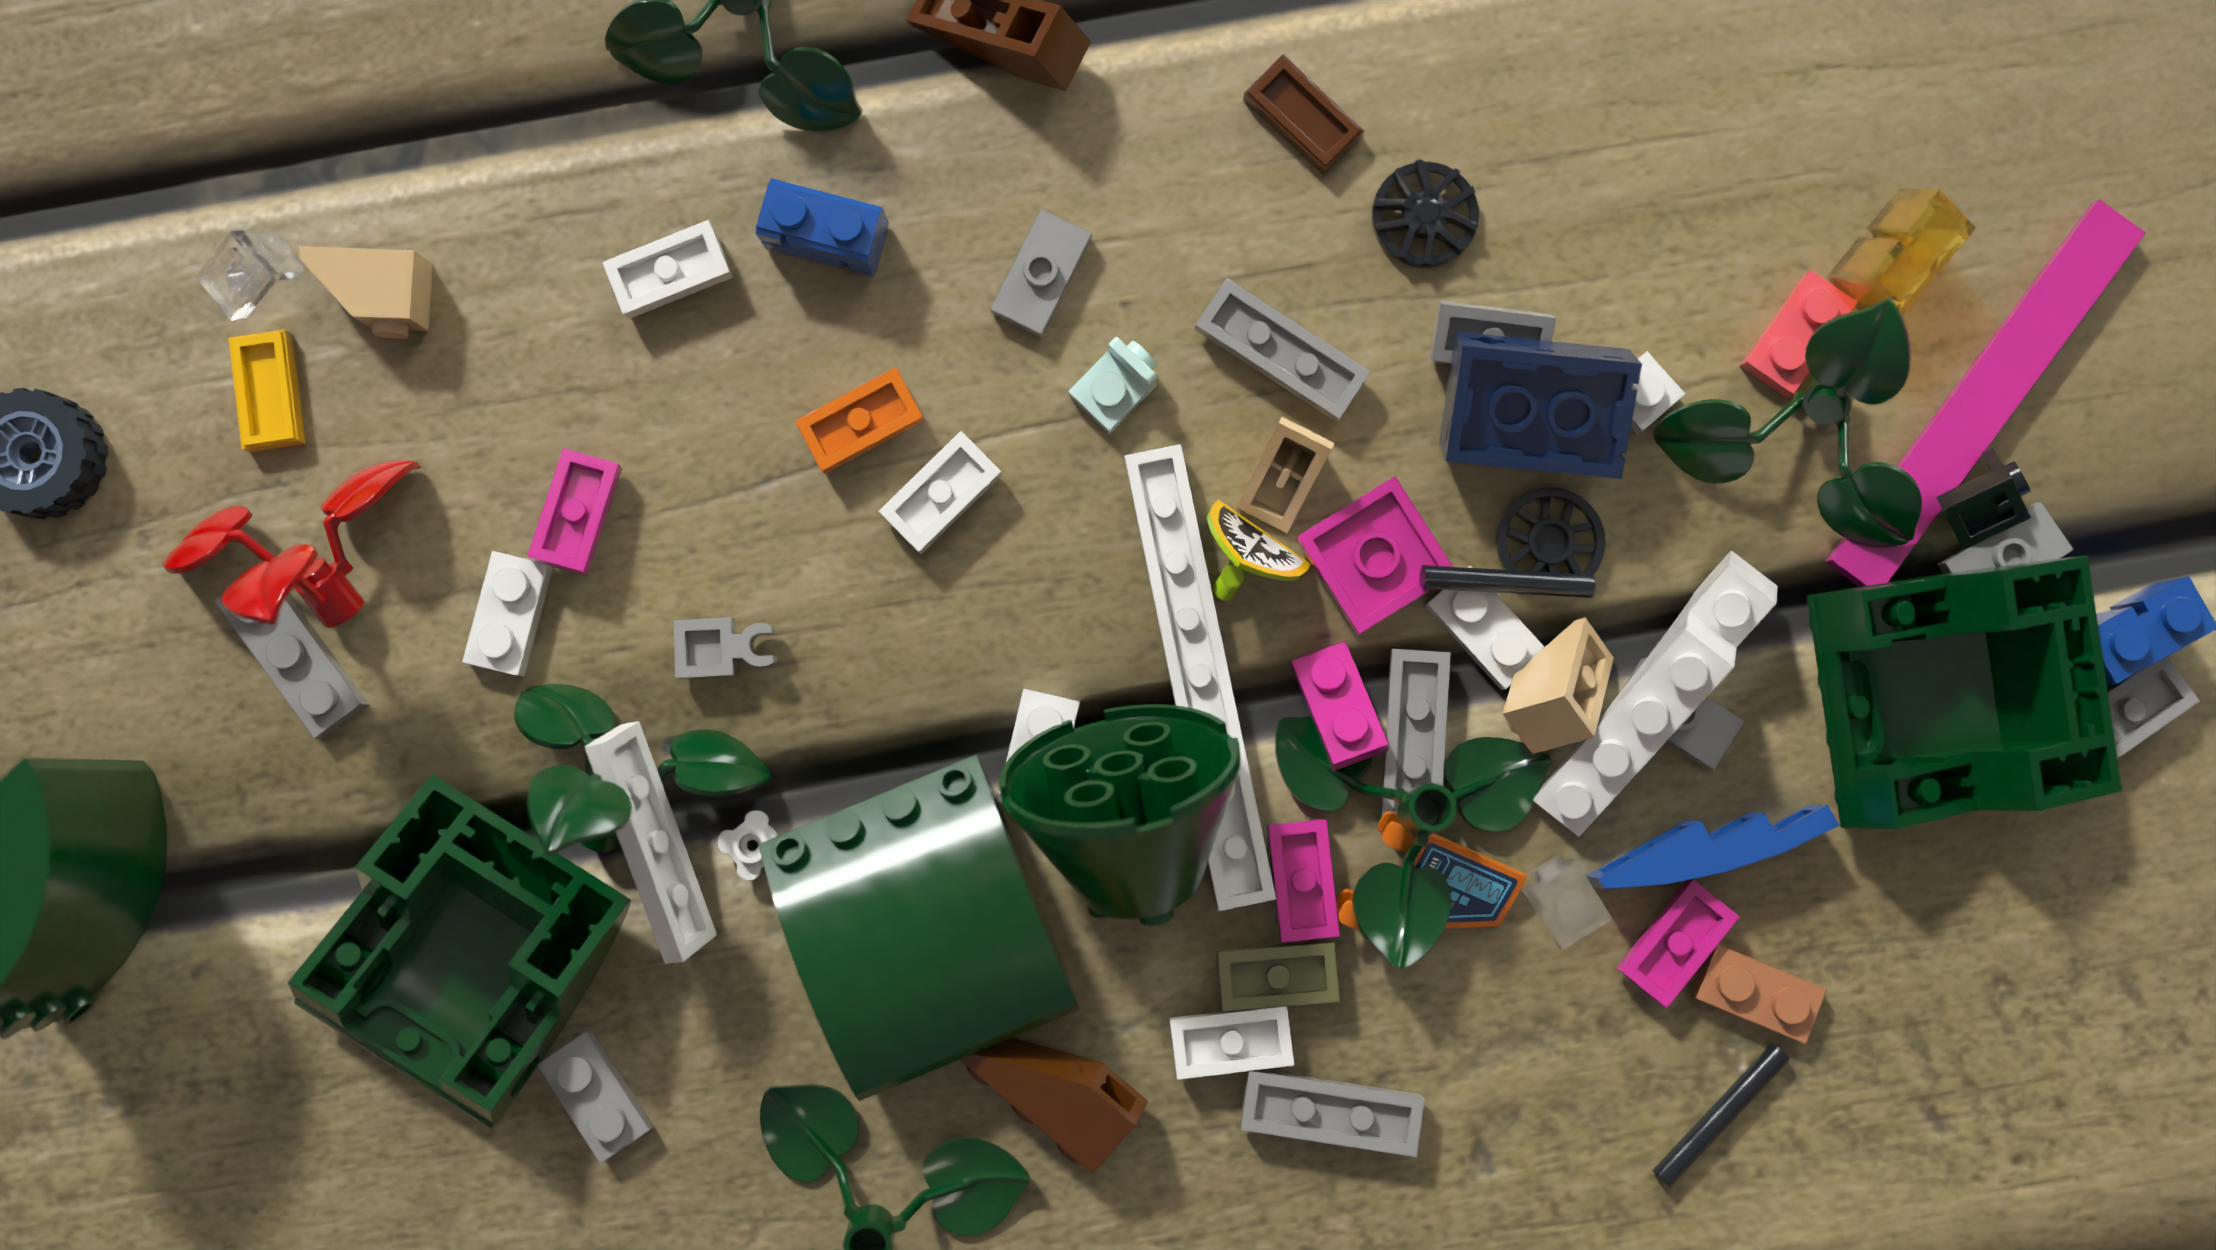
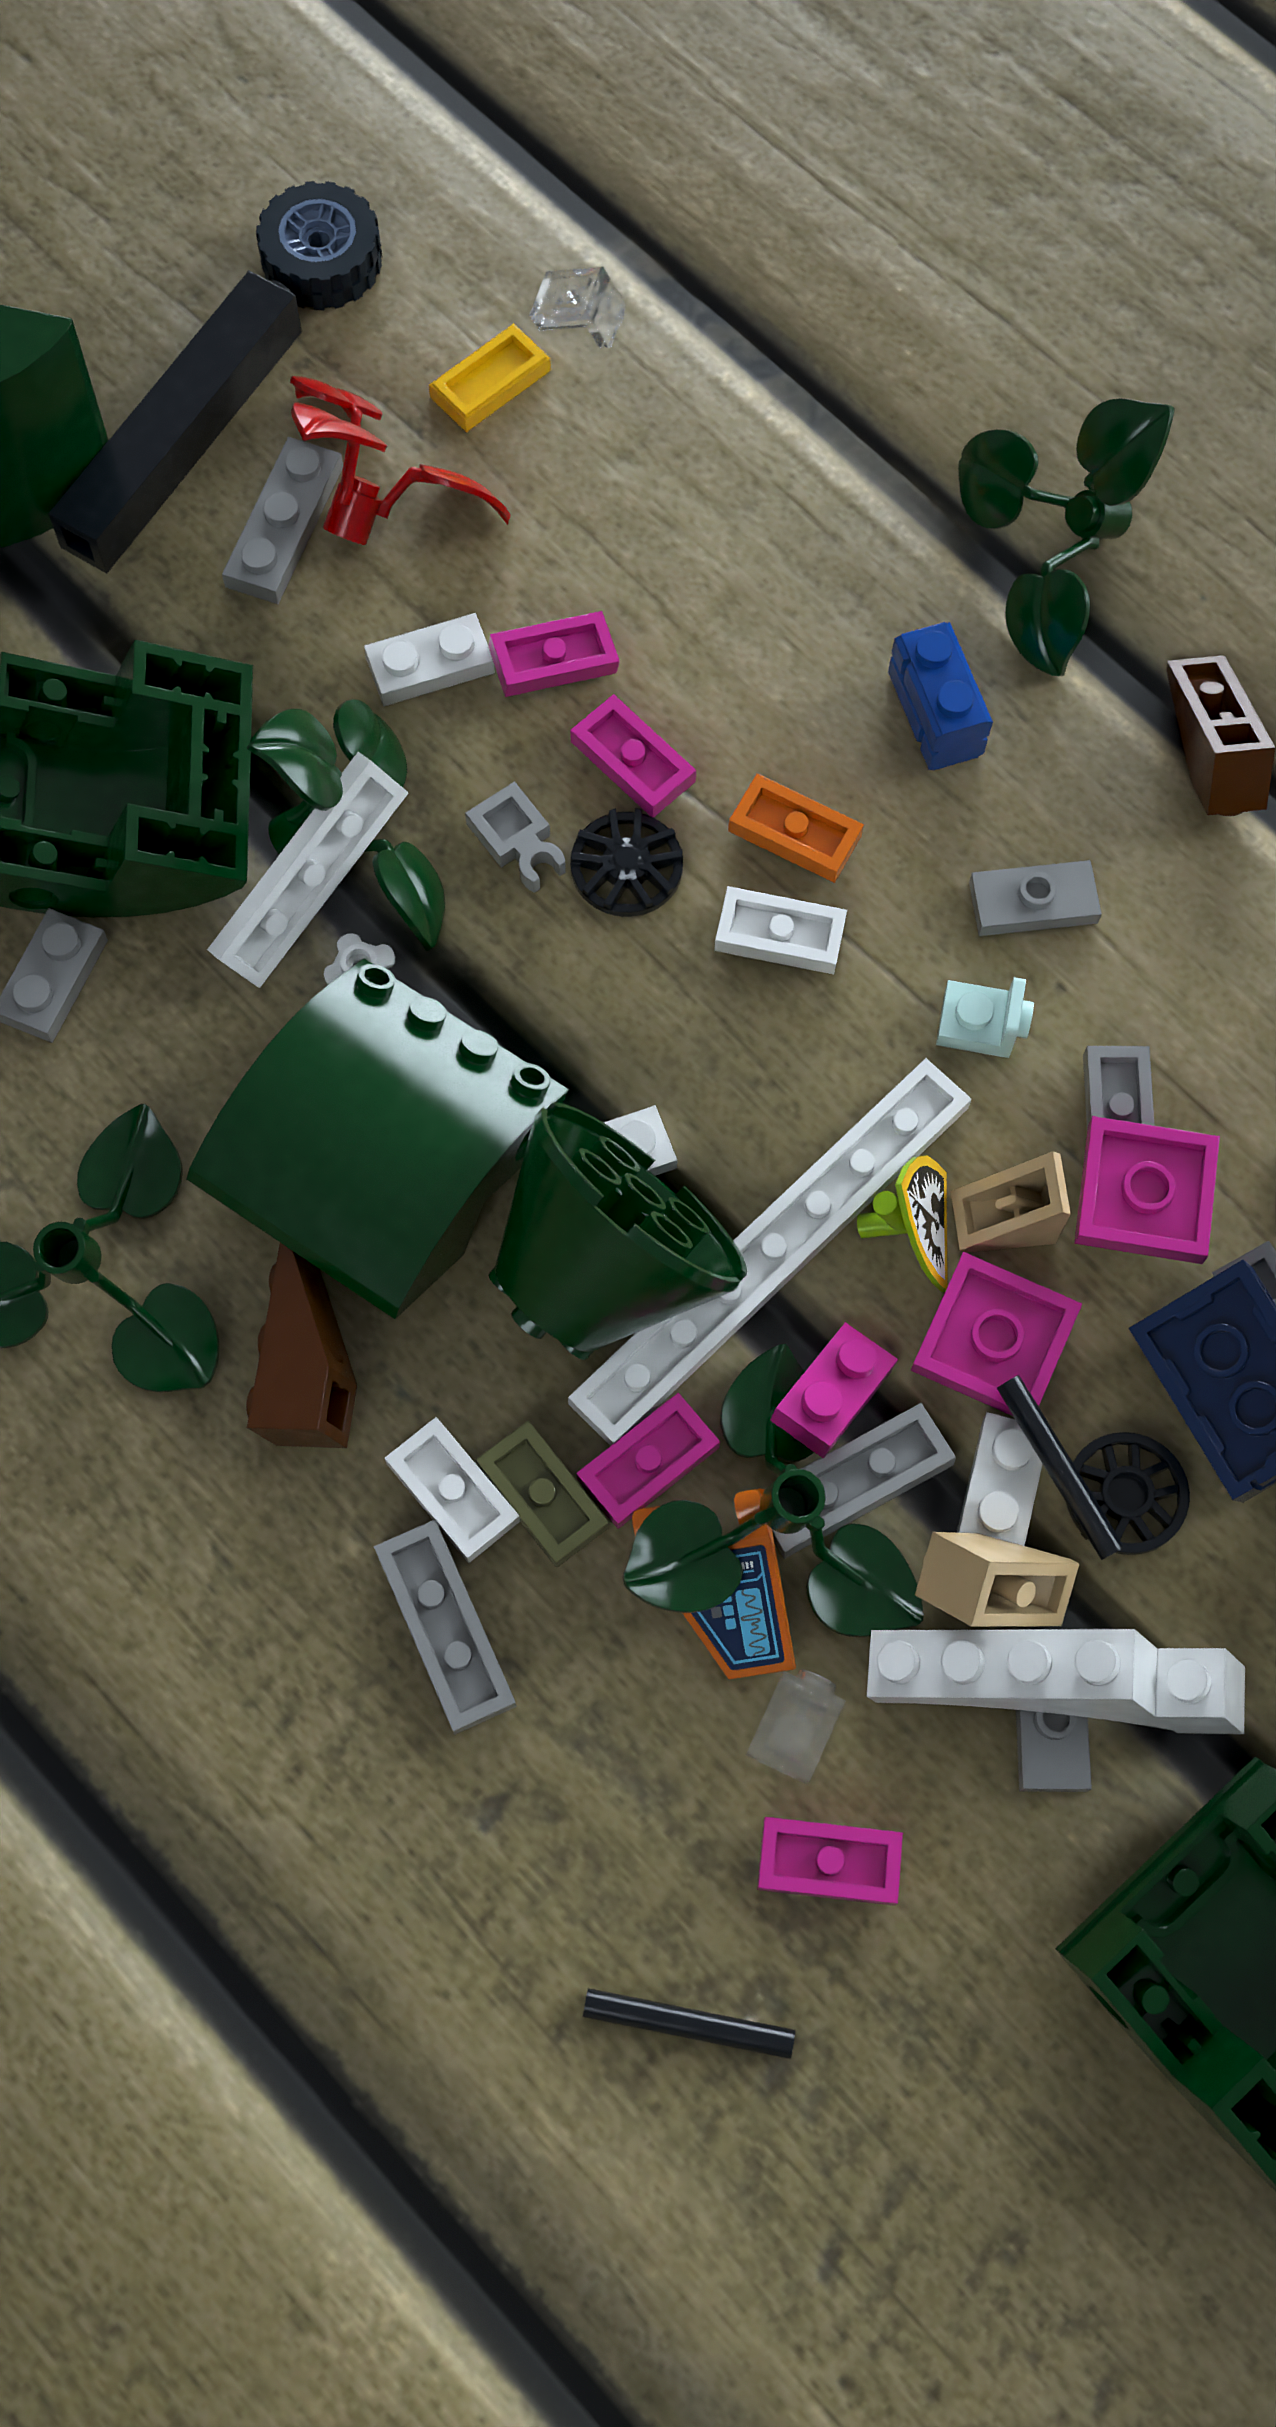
camera: 50 degrees right, 15 degrees down
(134, 683) = (176, 422): none -> black brick
(376, 286) = (636, 400): tan slope -> none
(667, 269) = (813, 603): white plate -> none
(709, 507) = (633, 756): none -> dark pink plate
(799, 573) = (626, 863): none -> black wheel
(1345, 366) = (1147, 1190): none -> dark pink plate
(1693, 853) = (924, 1813): blue slope -> none
(1759, 993) = (835, 1982): nougat plate -> none

